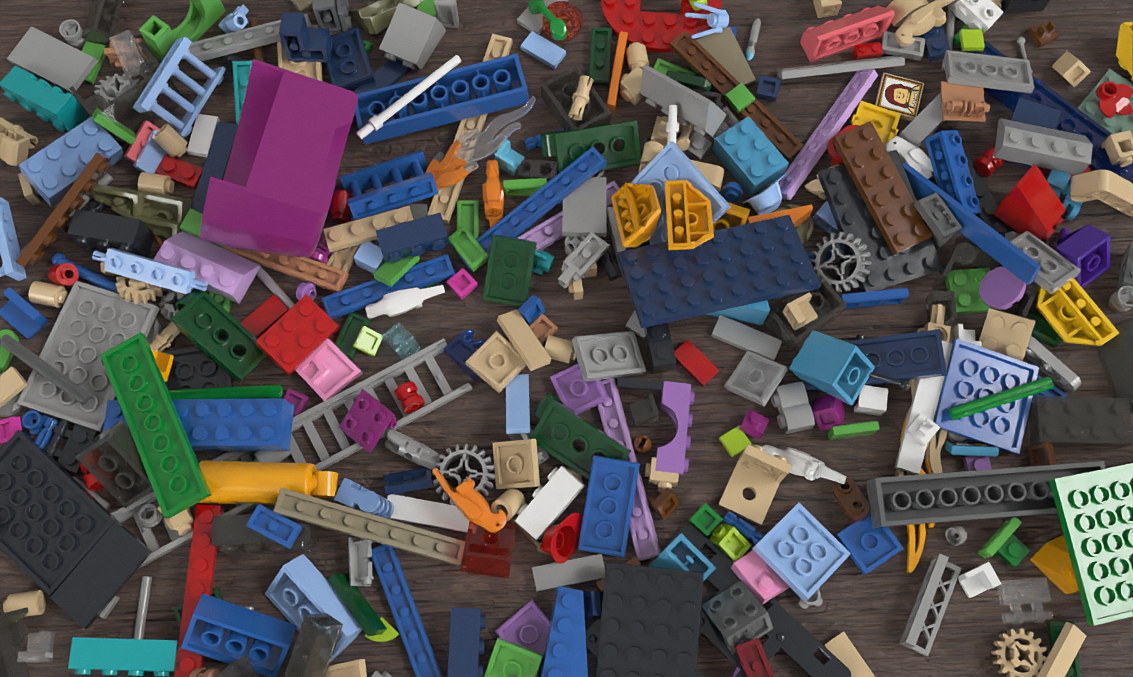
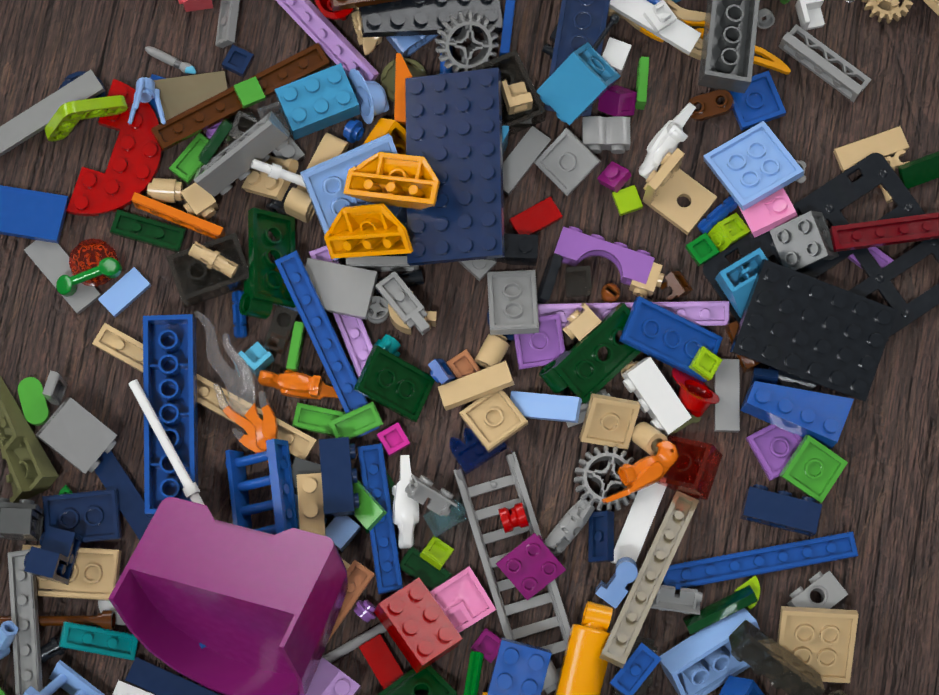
camera: 80 degrees left, 5 degrees up
(411, 328) = (423, 489): none -> light grey hinge
(592, 543) = (705, 363): none -> lime tile
(604, 420) = (581, 323): none -> tan brick

